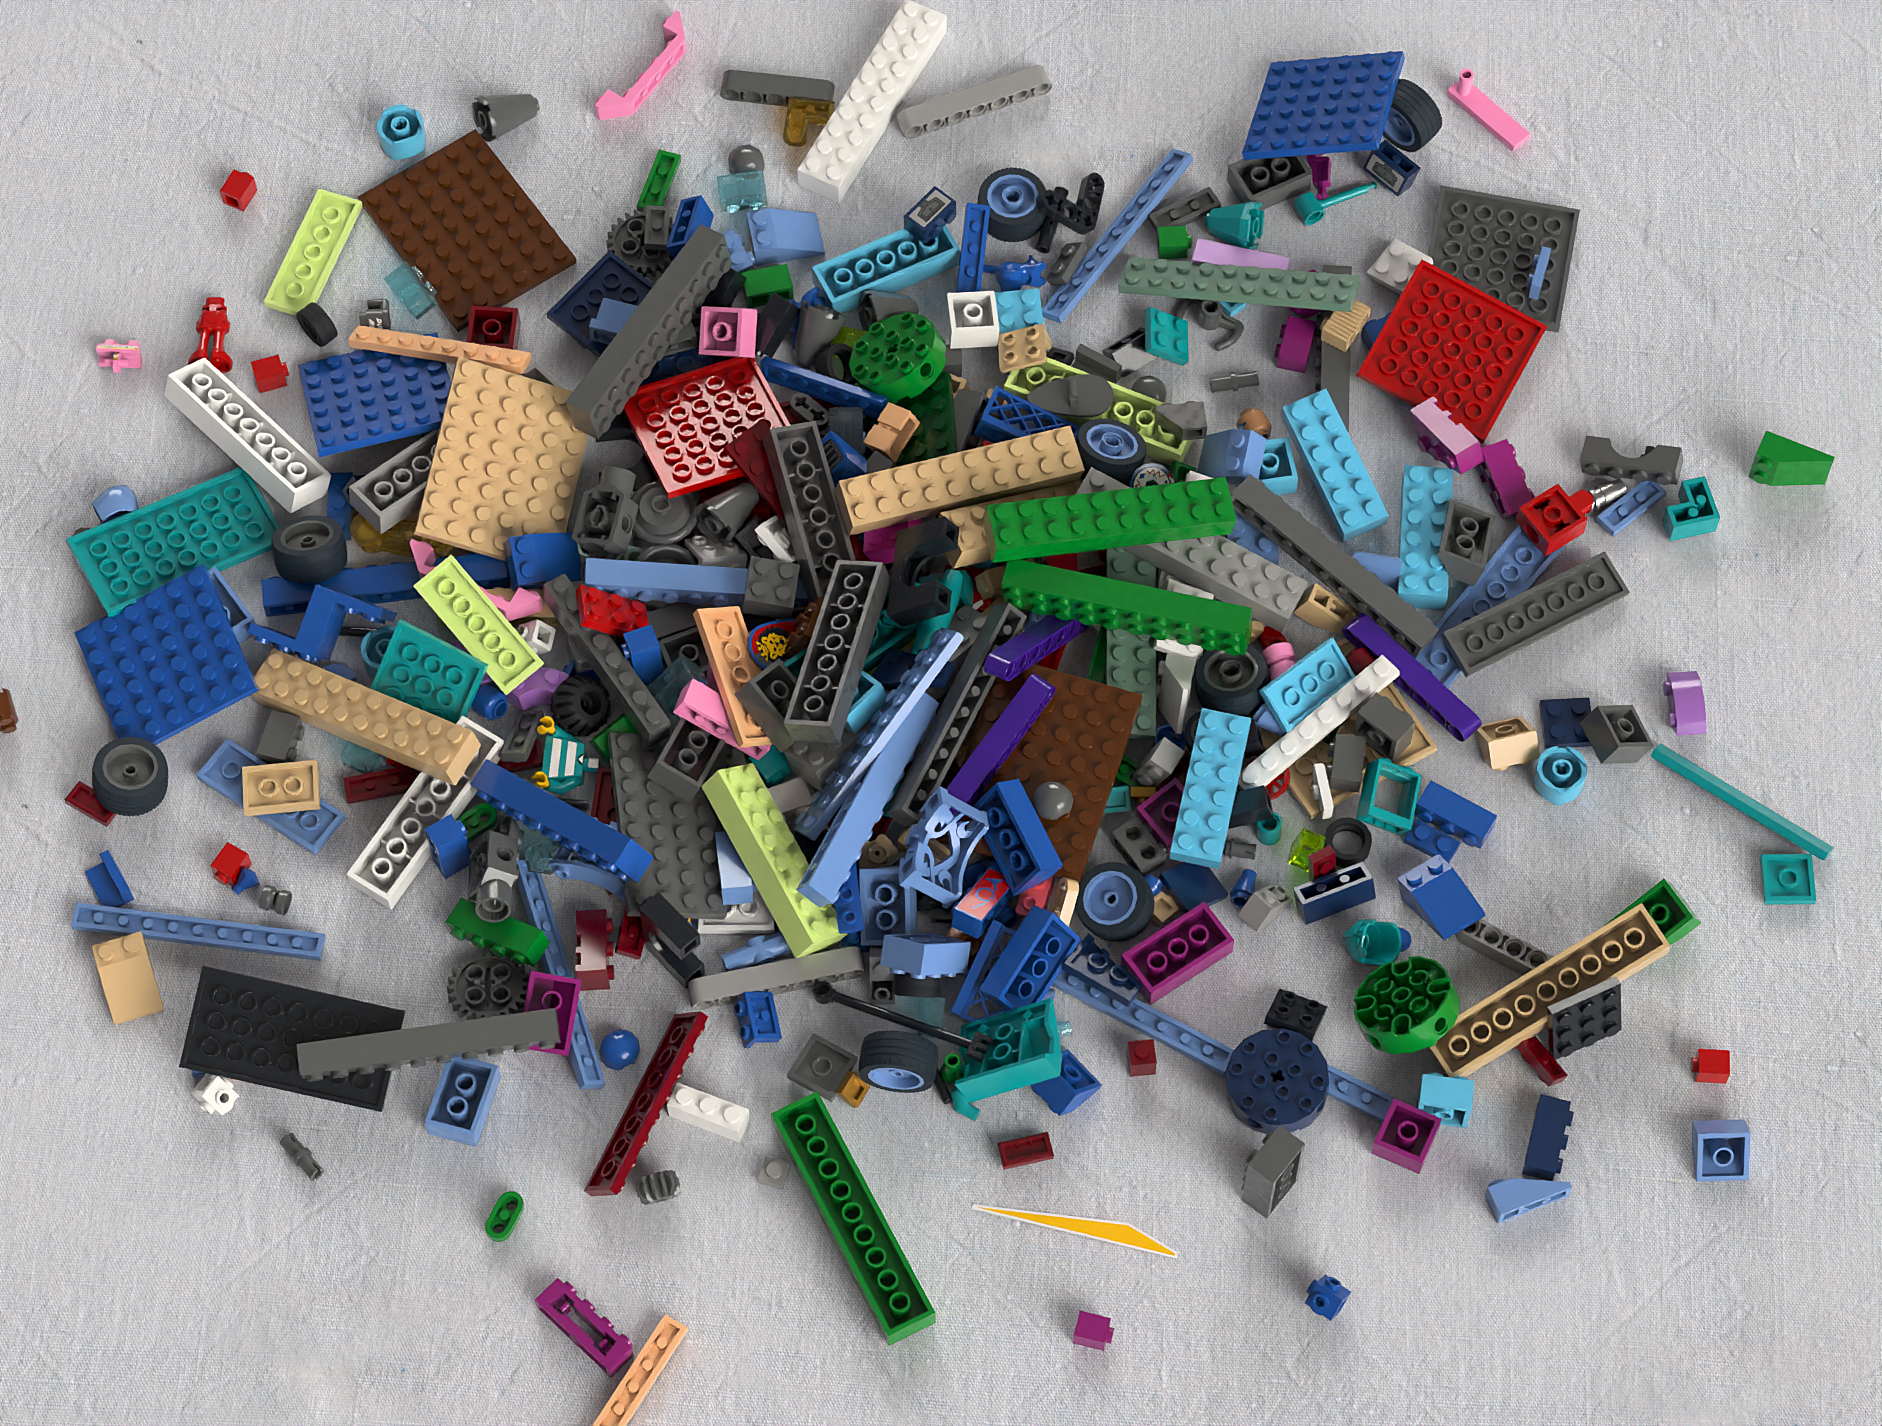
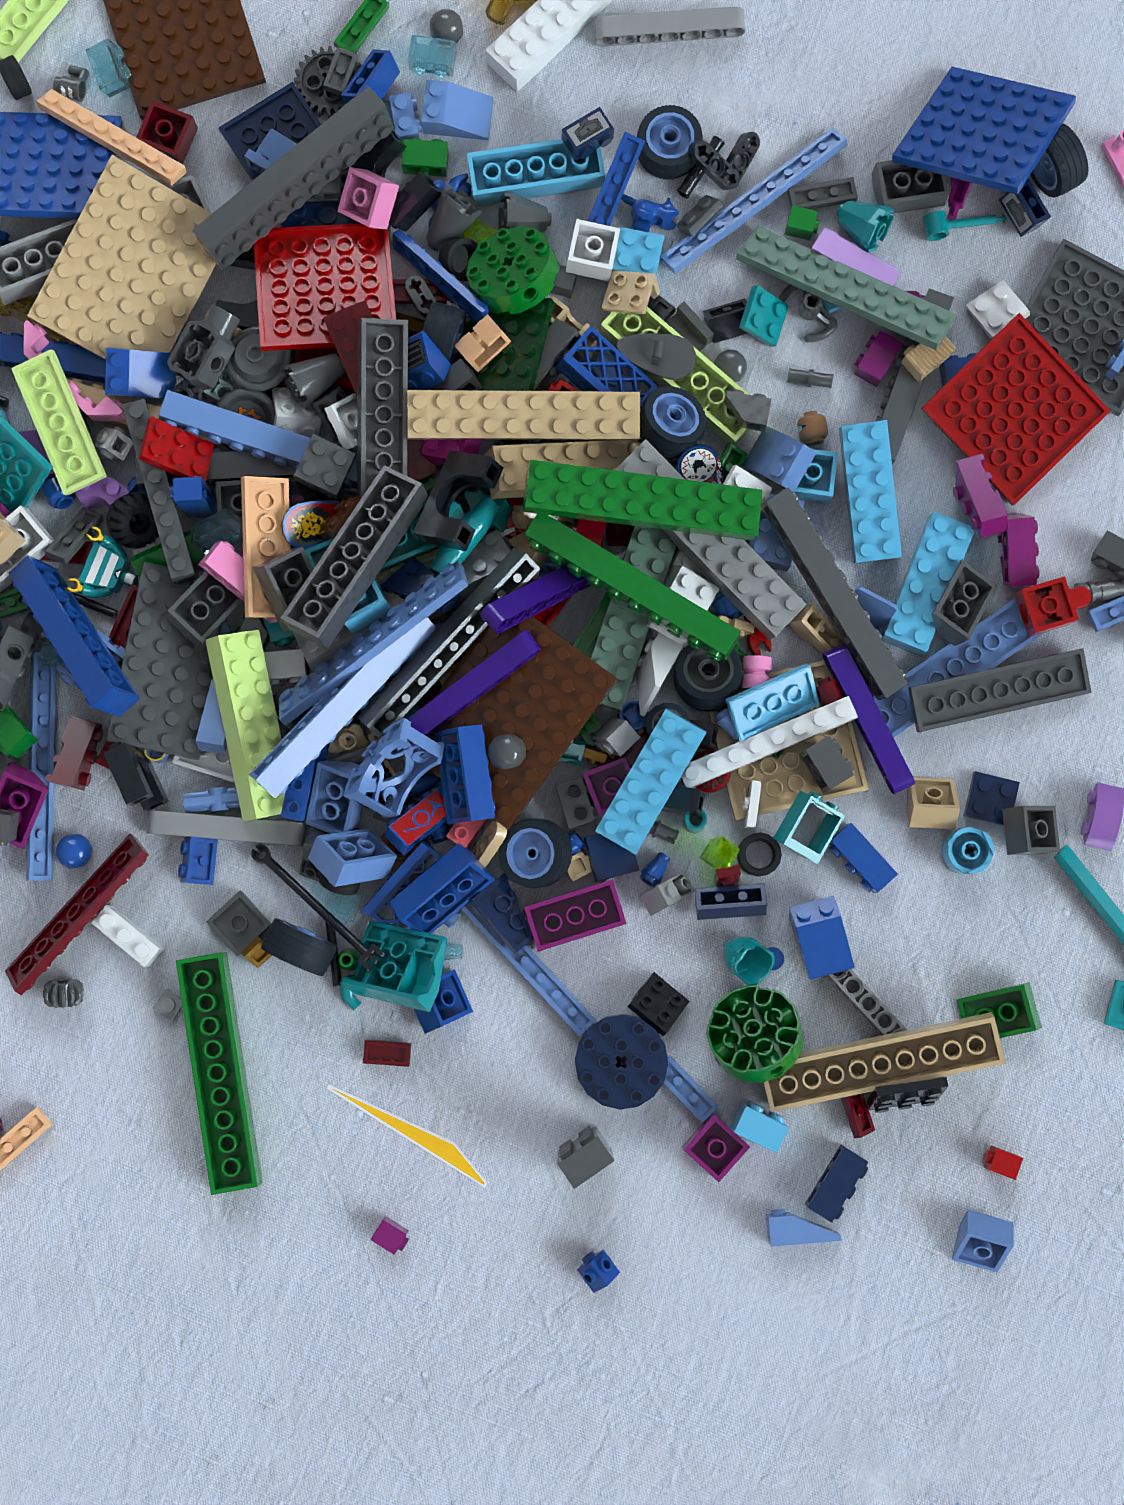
camera: 15 degrees right, 20 degrees up
(1141, 1057) = (513, 1001): dark red brick -> none
(1347, 762) = (782, 784): dark grey brick -> none
(1431, 841) = (834, 875): blue plate -> none

